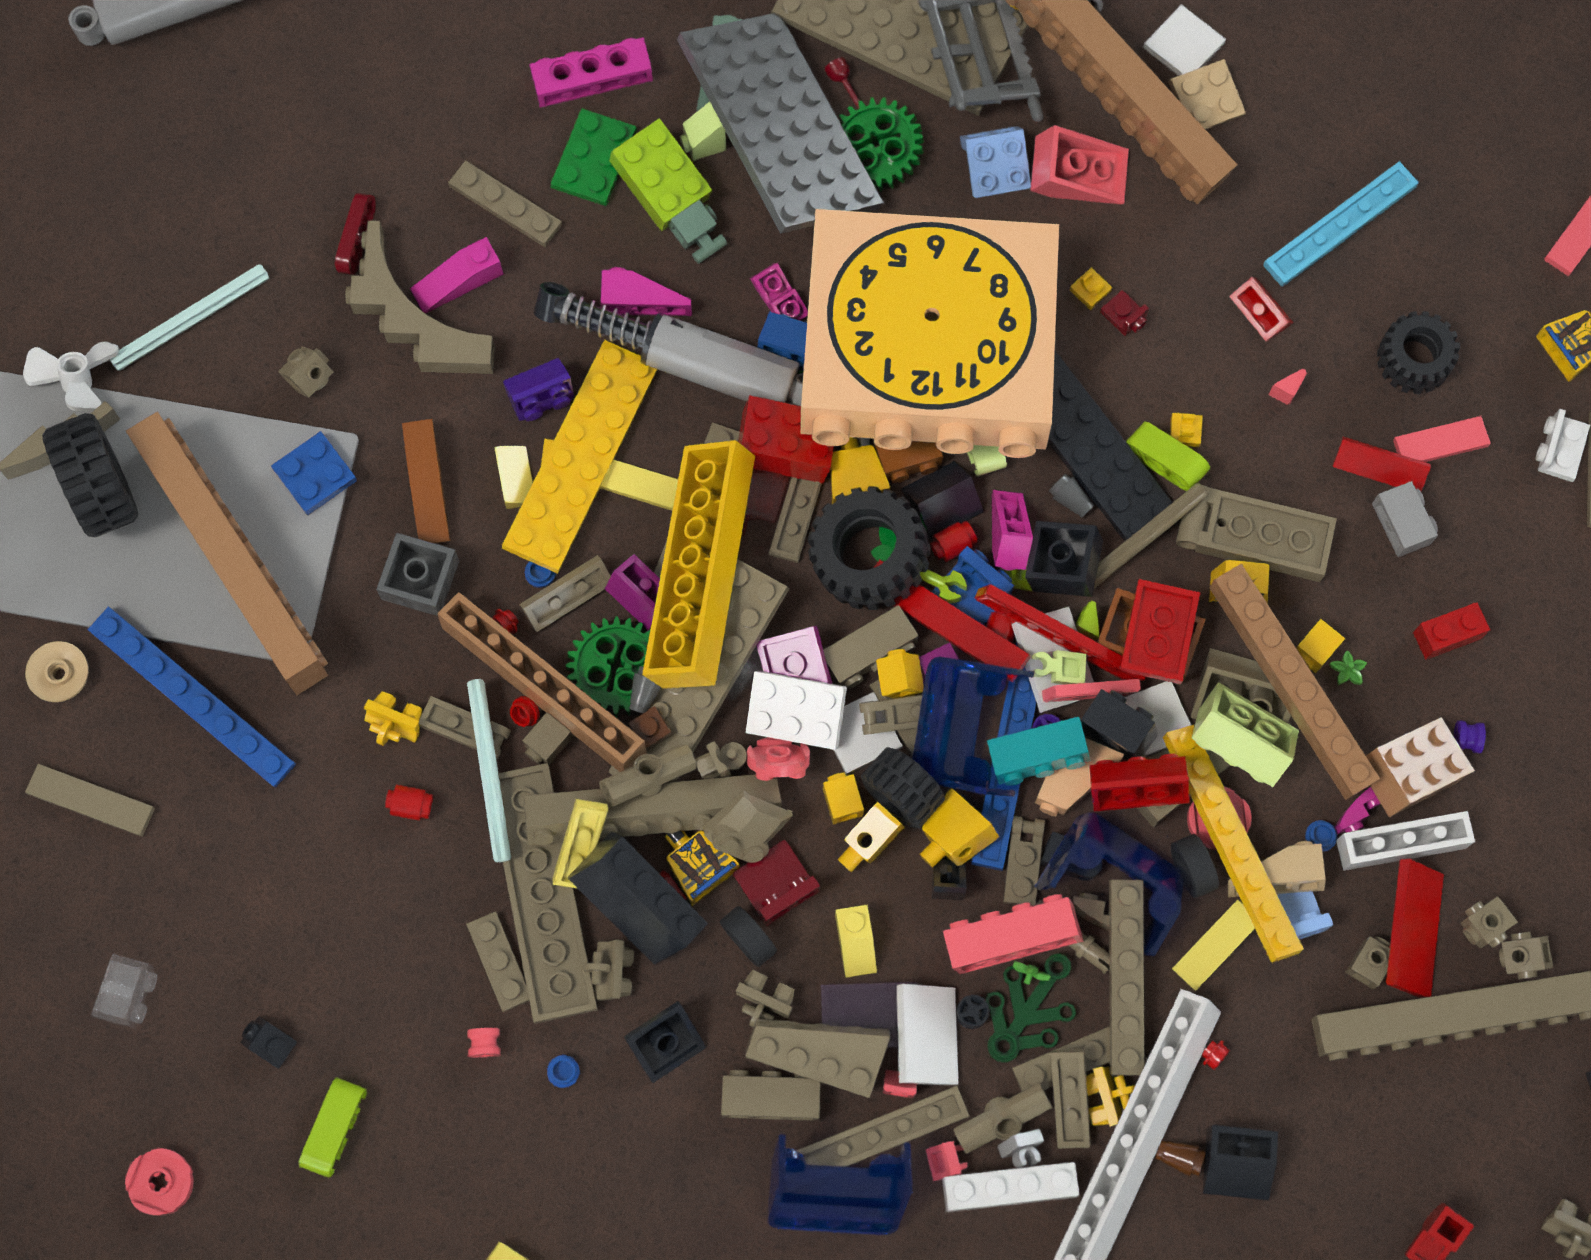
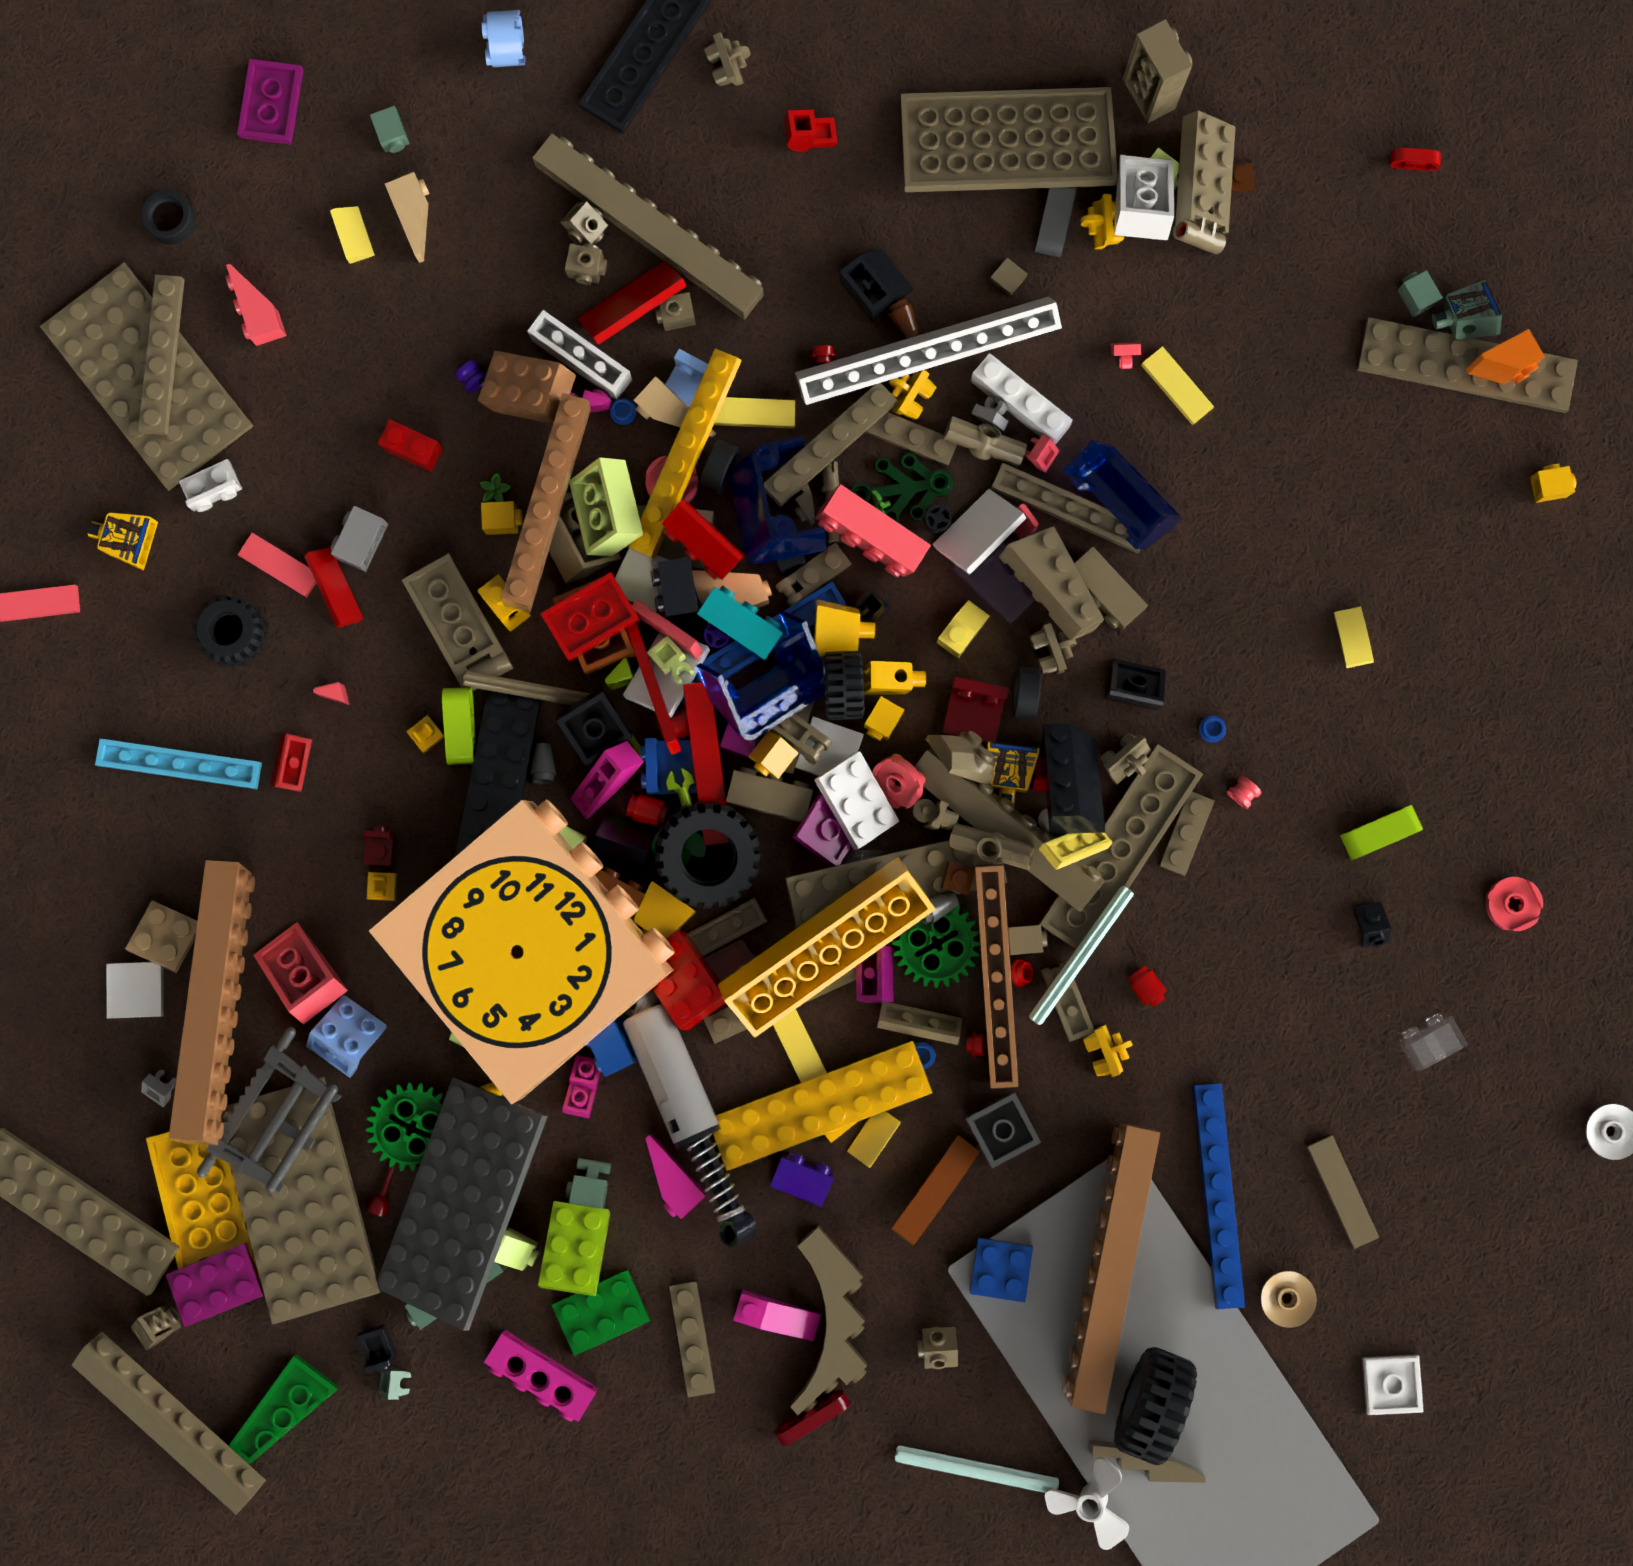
camera: 130 degrees left, 10 degrees up
(1070, 1098) = (934, 412): dark tan plate -> none

